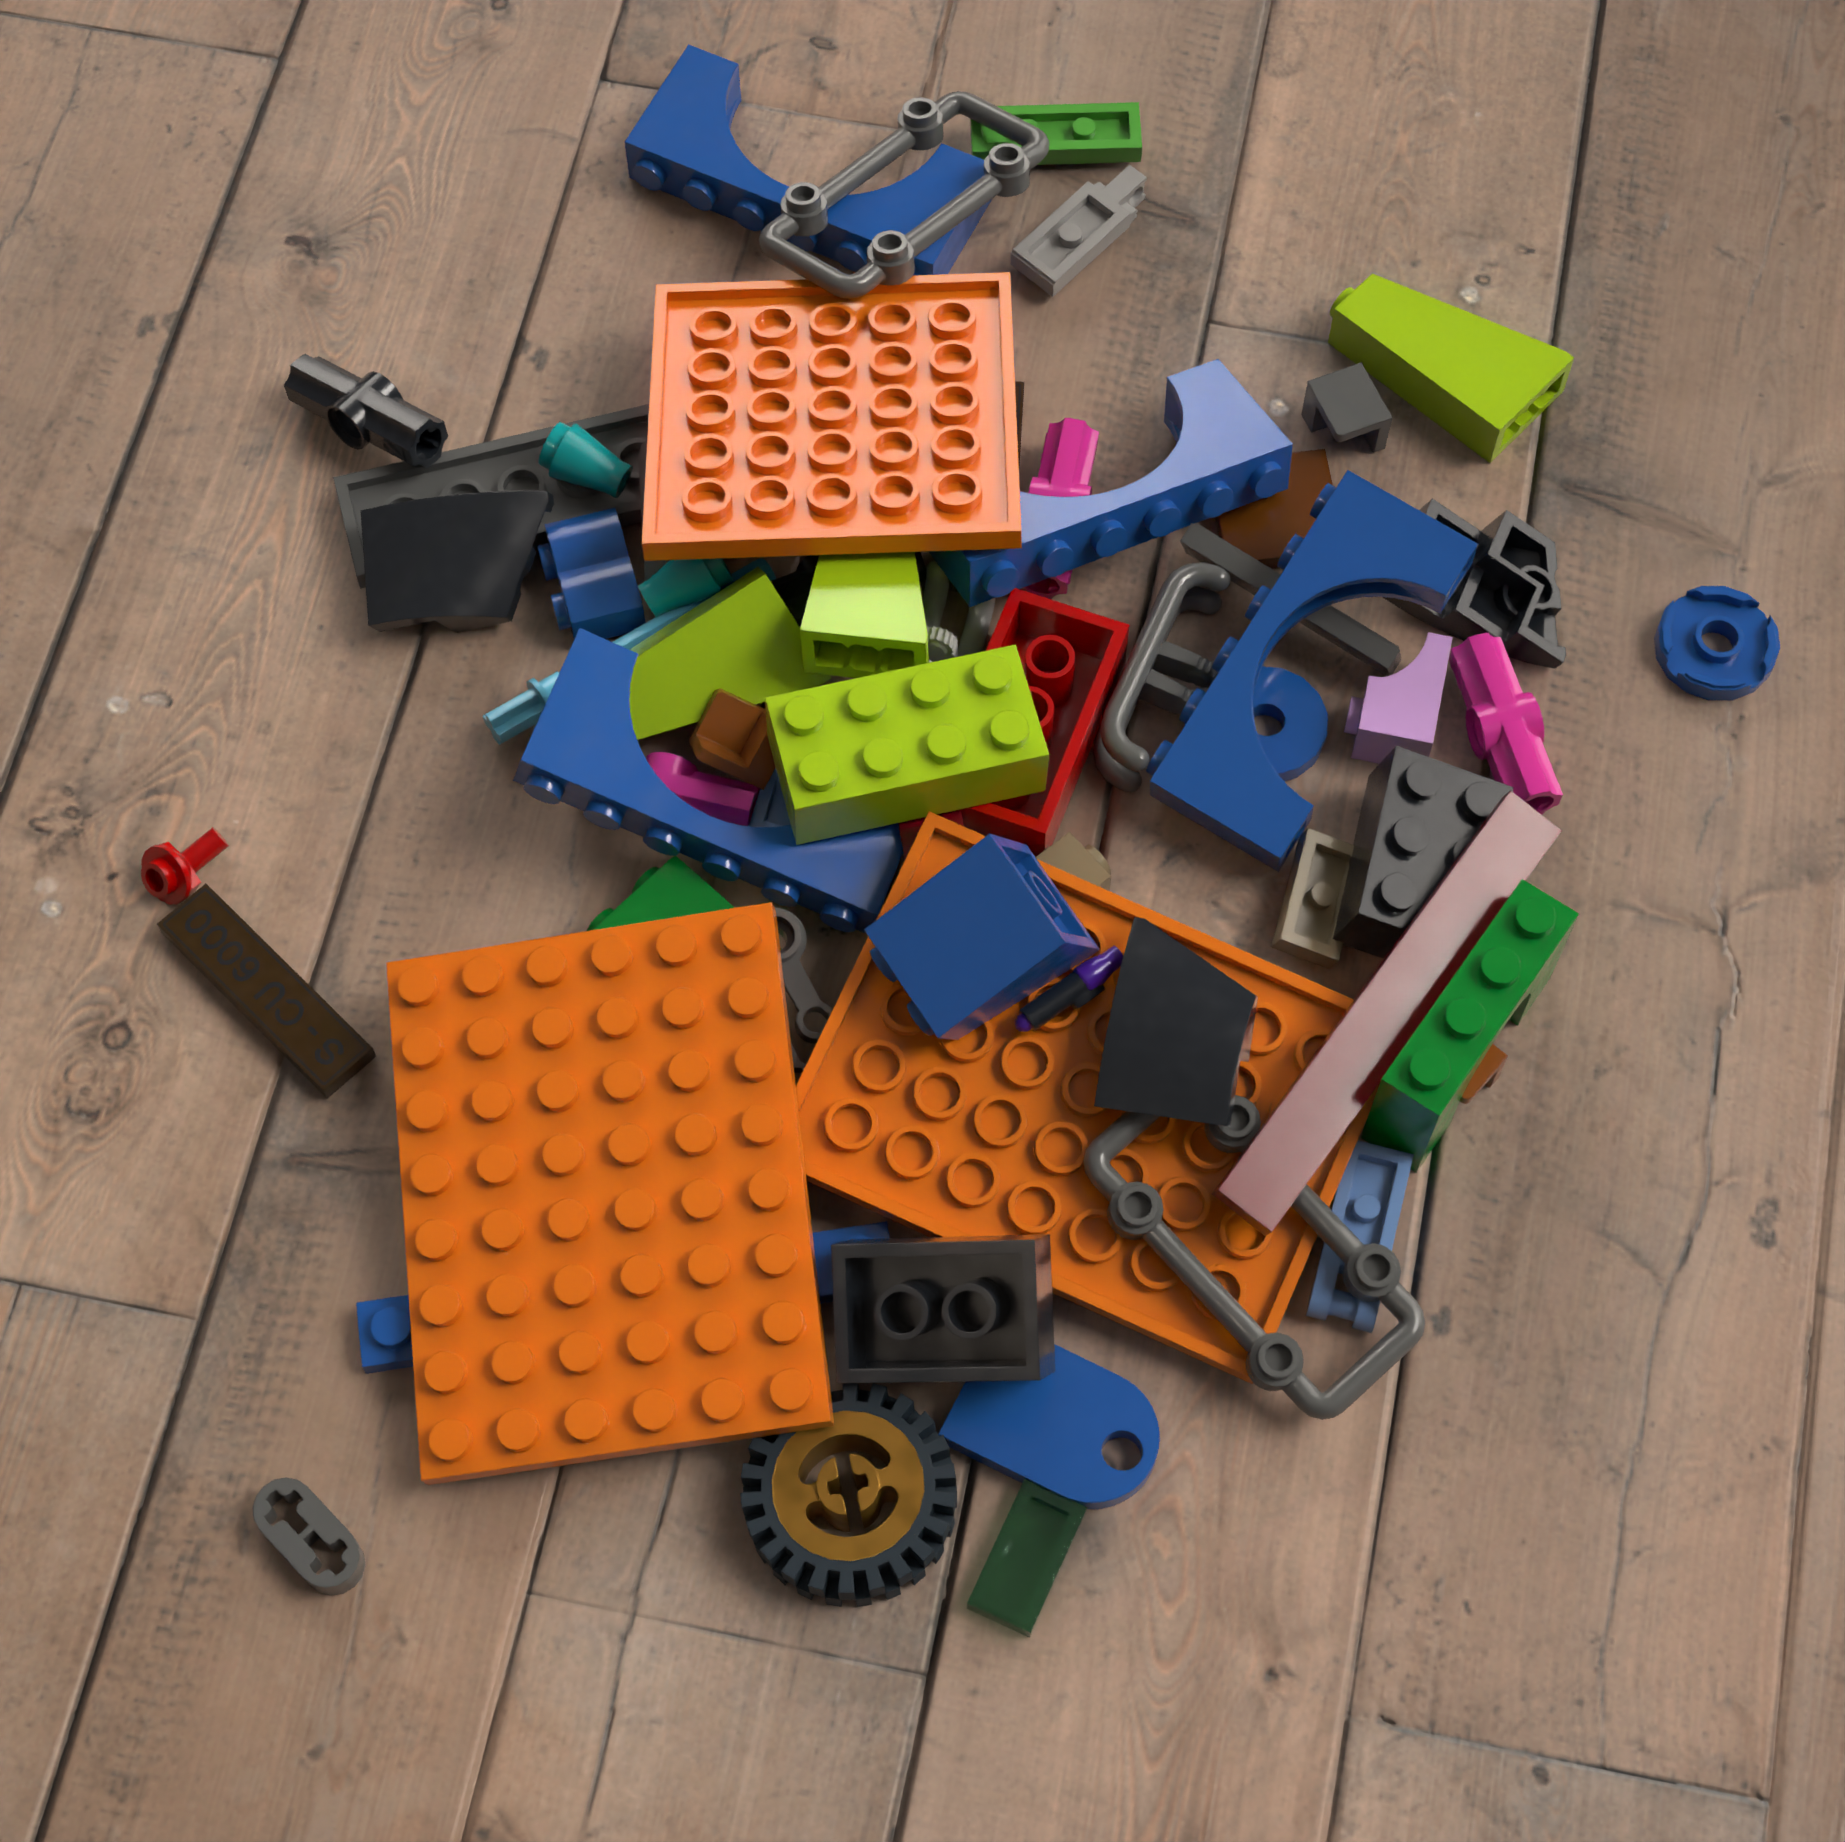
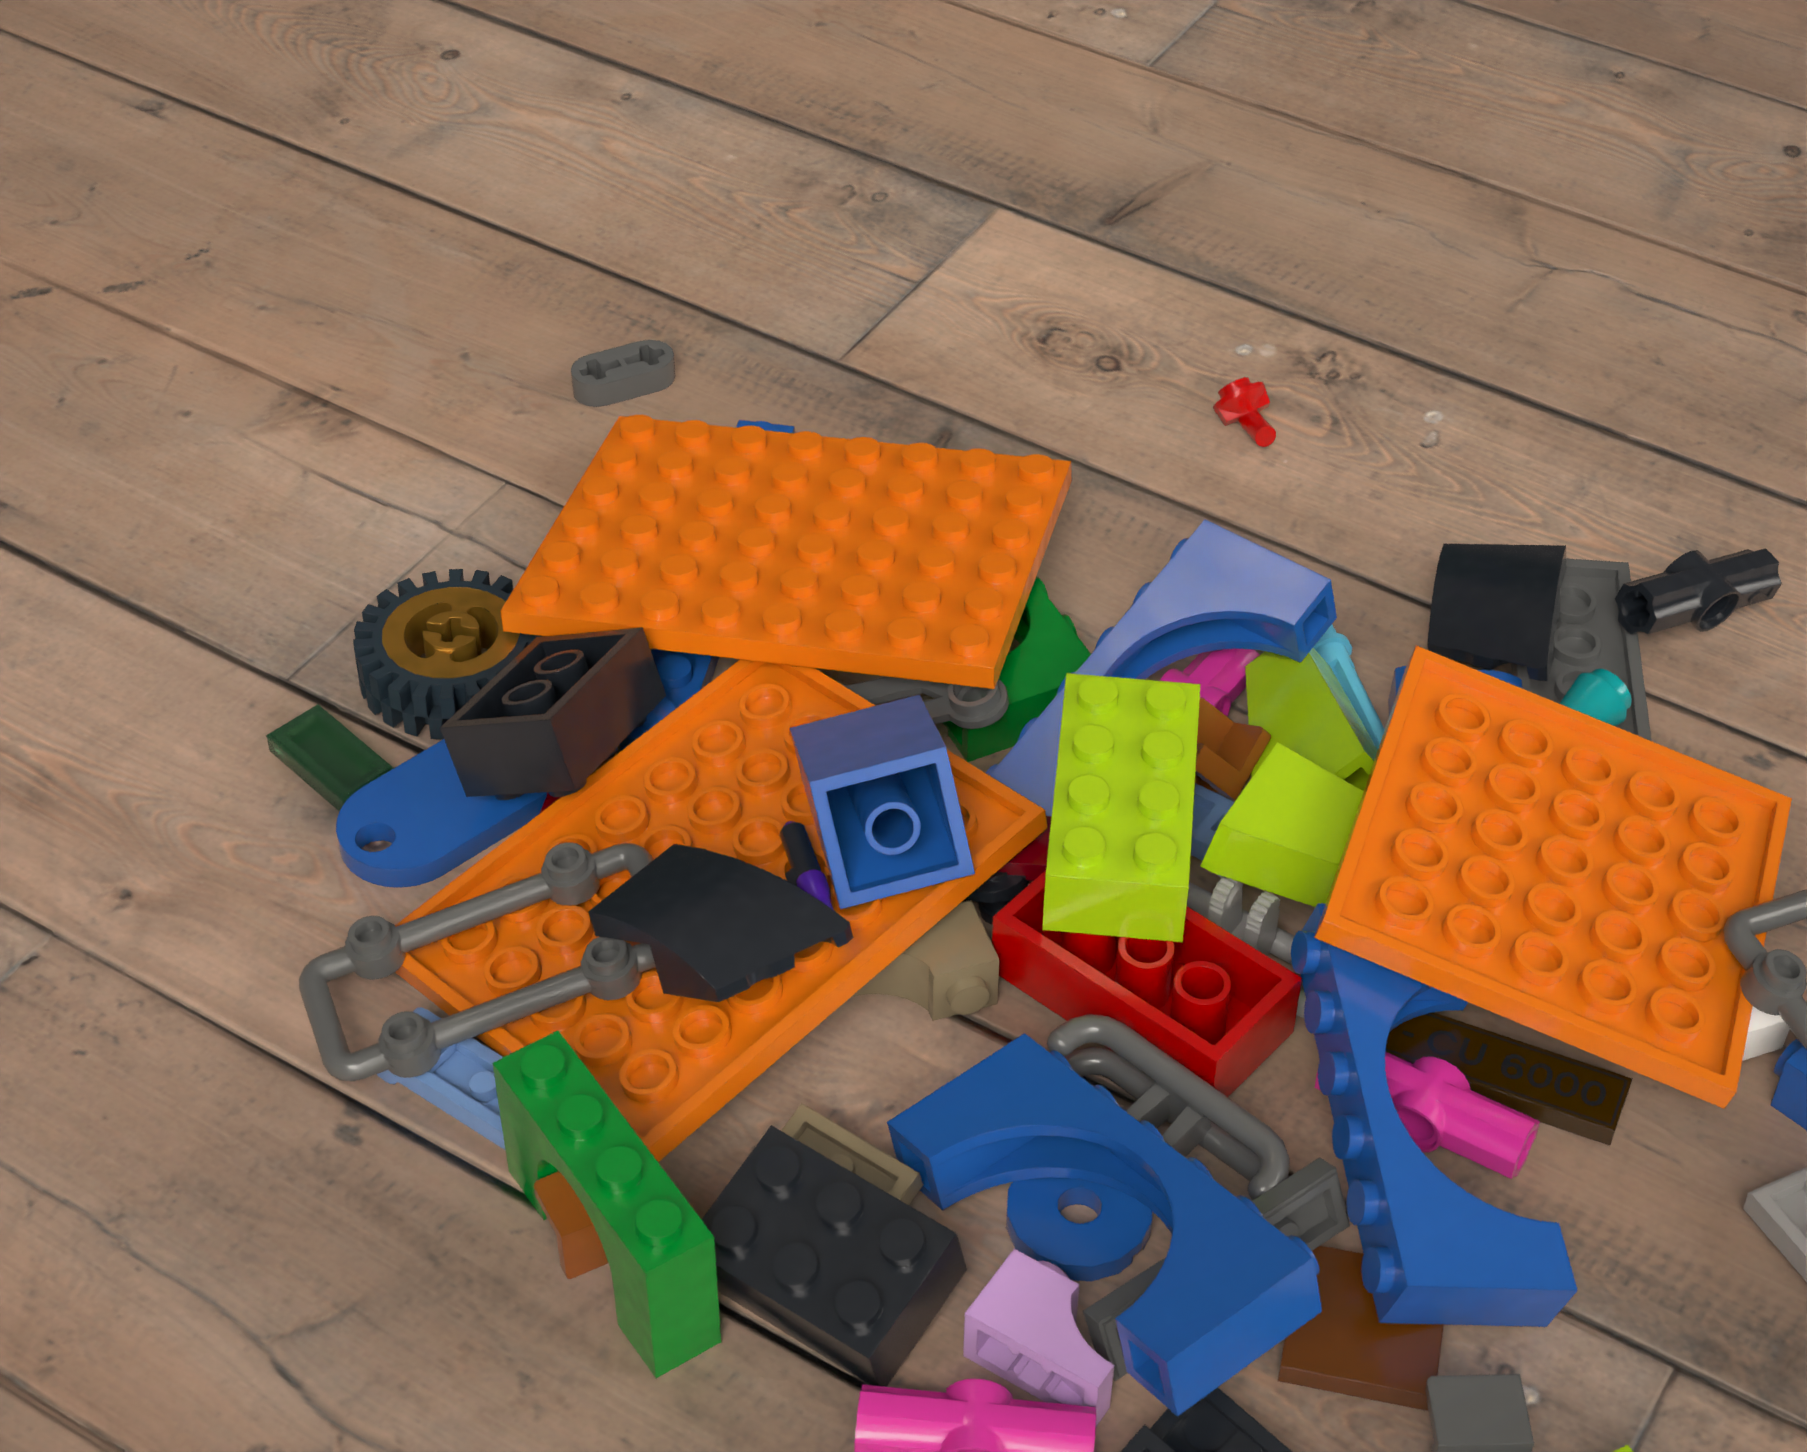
camera: 110 degrees right, 20 degrees down
(266, 990) = (1121, 432): dark brown tile -> none
(1384, 1015) = (750, 1239): tile -> none

